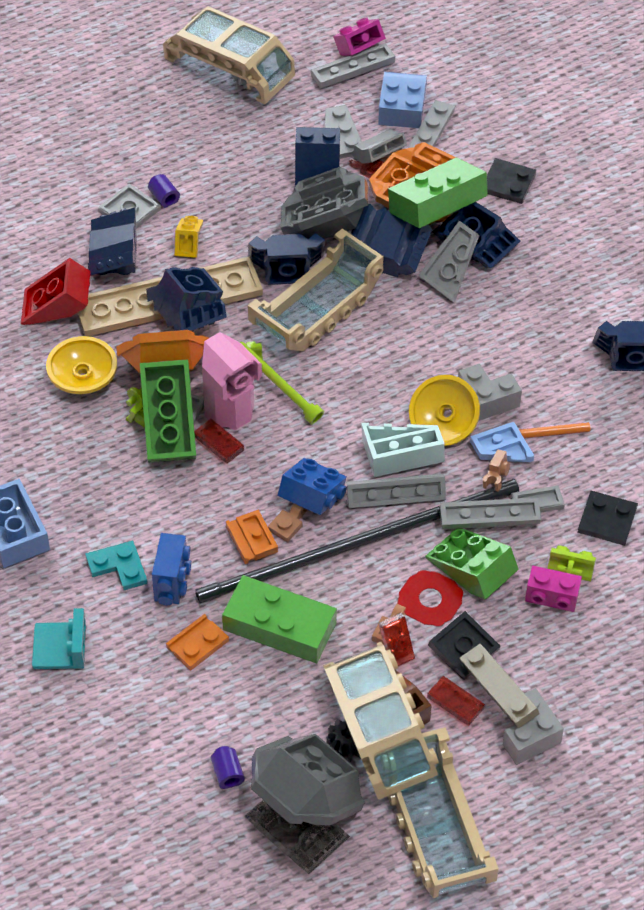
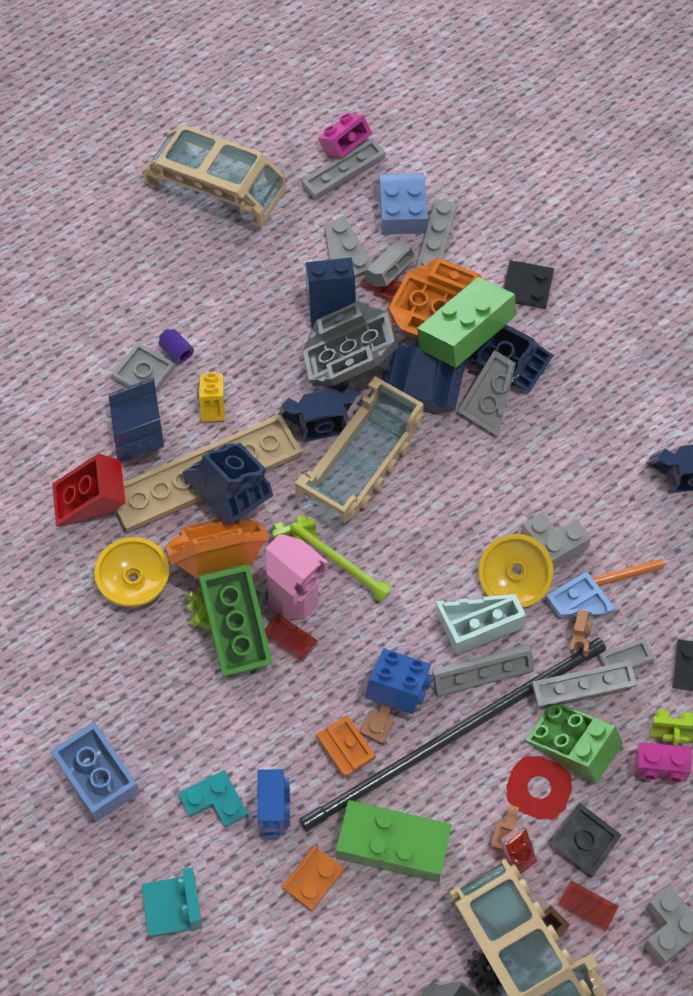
camera: 10 degrees left, 10 degrees up
(499, 686) = (633, 889): plate -> none

